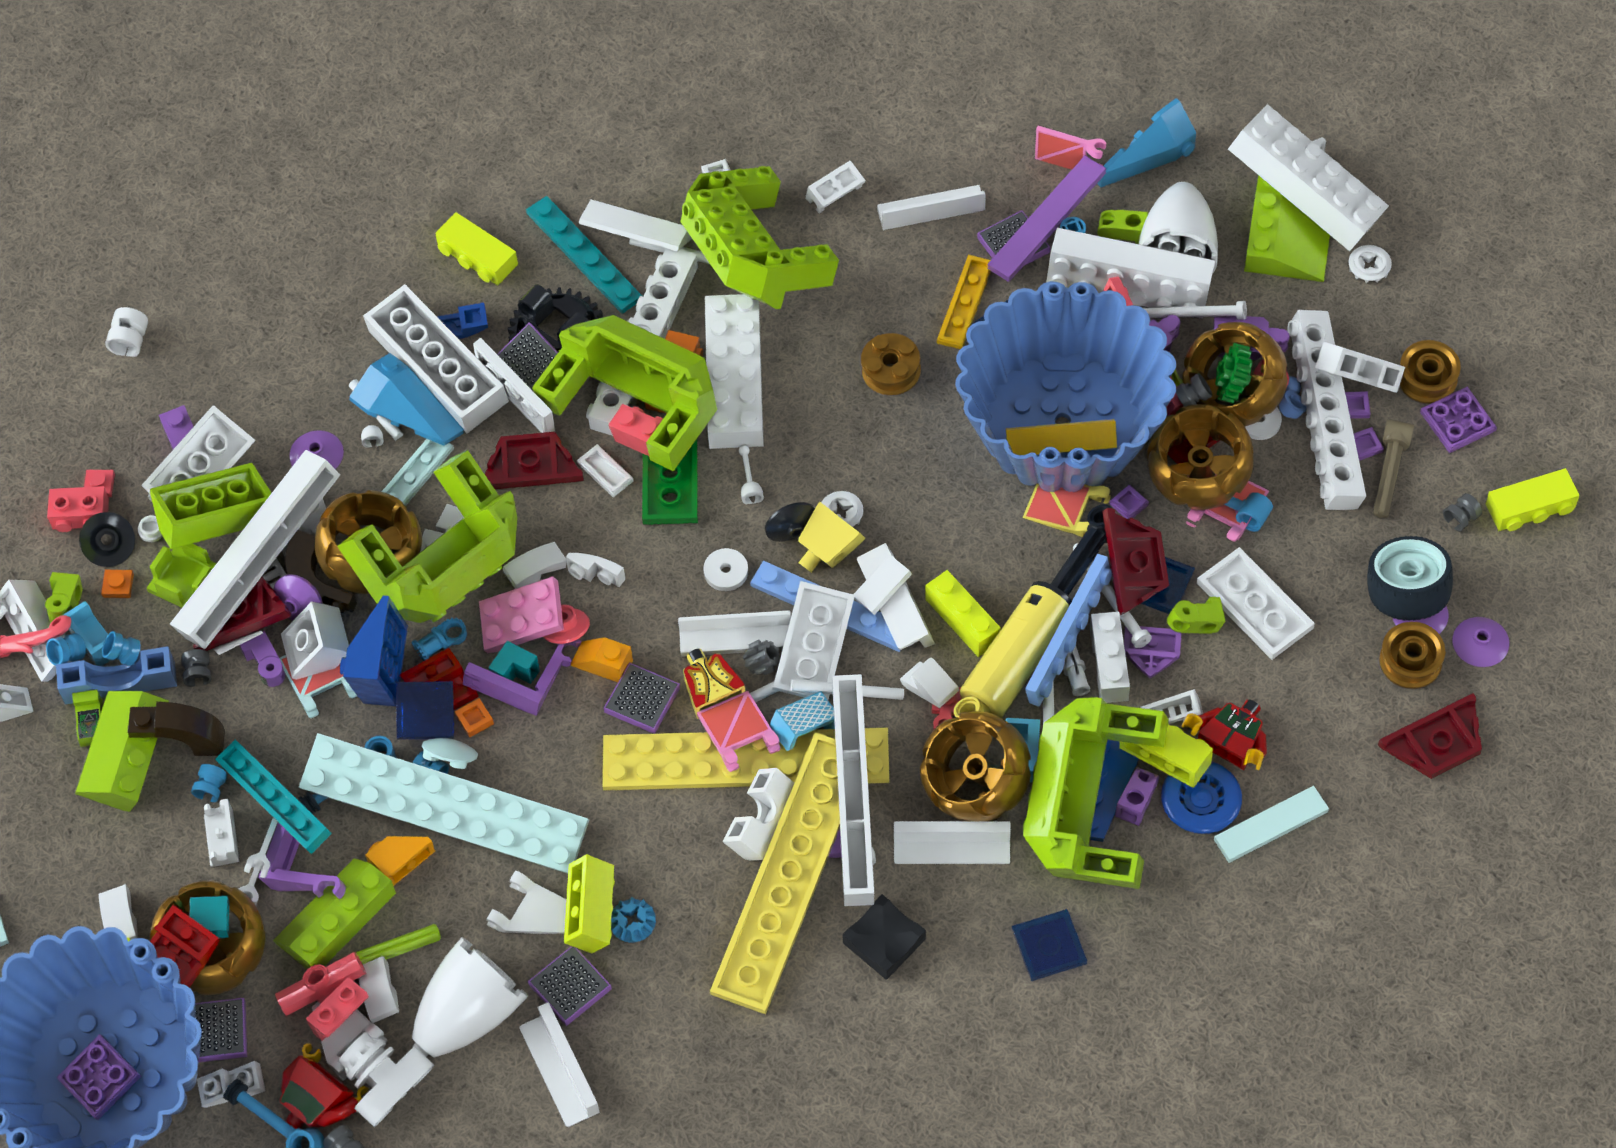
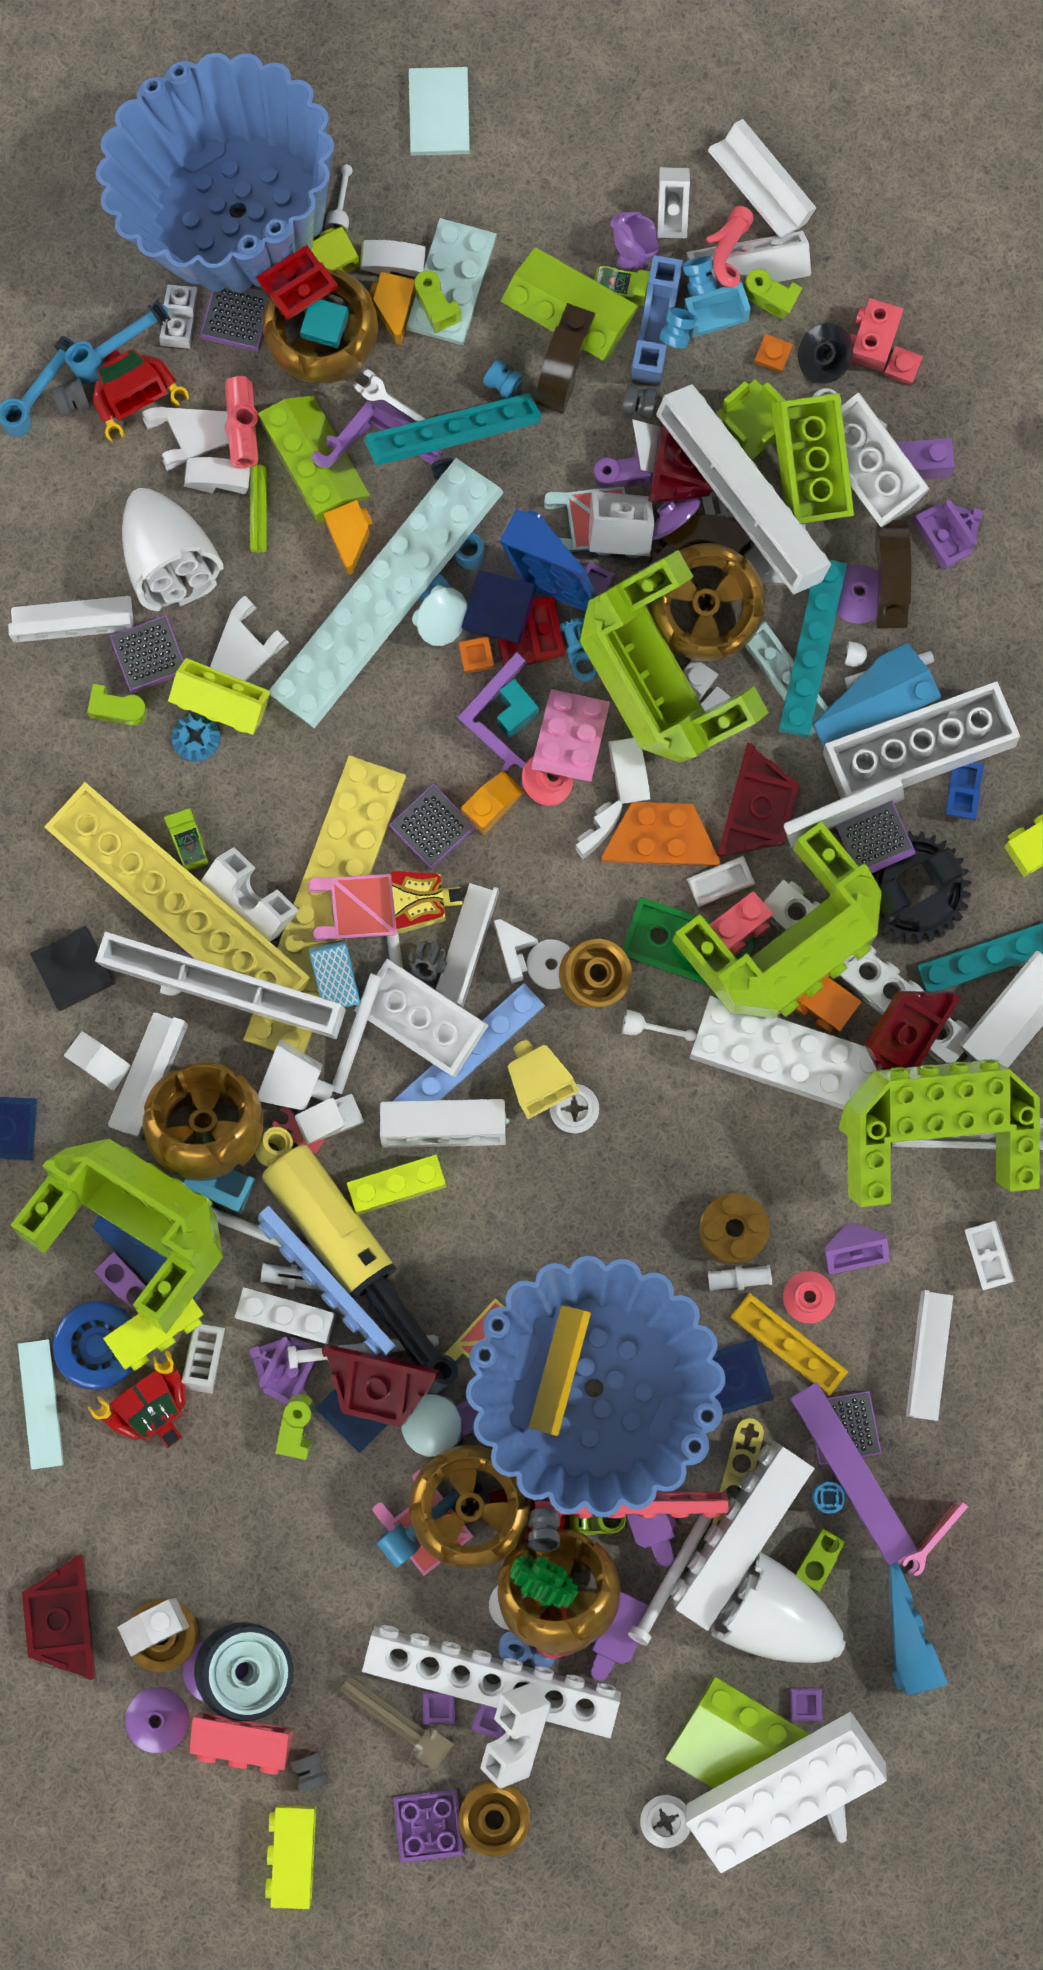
camera: 110 degrees right, 20 degrees up
(43, 723) = (634, 240): none -> medium lavender hair
(98, 1077) = (223, 193): medium lavender tile -> none
(128, 859) = (460, 260): none -> light aqua plate
(153, 857) = (432, 300): none -> lime leg
(154, 892) = (393, 302): none -> light orange slope
(221, 834) = (442, 377): white hinge -> none
(241, 401) = (949, 531): none -> medium lavender slope
(288, 420) = (894, 574): none -> dark brown arch
(336, 1008) = (199, 425): coral bracket -> none
(389, 1081) = (133, 440): white beam -> none
(392, 462) = (812, 652): none -> teal plate
(582, 524) = (661, 836): none -> orange wing
(629, 984) = (116, 709): none -> lime leg
(682, 281) = (909, 1028): none -> dark red wing
(722, 526) = (576, 979): none -> pearl gold wheel
(722, 602) = (511, 940): none -> white slope
(728, 888) = (187, 839): none -> leg
(788, 521) = (566, 1044): black dish -> none
(867, 280) = (856, 1248): none -> medium lavender slope
(882, 584) = (456, 1110): white tile -> none
(906, 722) = (293, 1079): none -> white torso
(919, 309) = (794, 1297): none -> coral piece
(928, 349) = (739, 1277): none -> white pin
(956, 892) = (97, 1060): none -> white slope
(1151, 513) = (433, 1426): none -> light aqua dish
(1235, 203) = (805, 1704): none -> medium lavender tile
(1256, 603) = (291, 1498): white plate -> none
(1409, 639) = (153, 1626): none -> white slope
(1470, 578) = (240, 1742): none -> coral slope

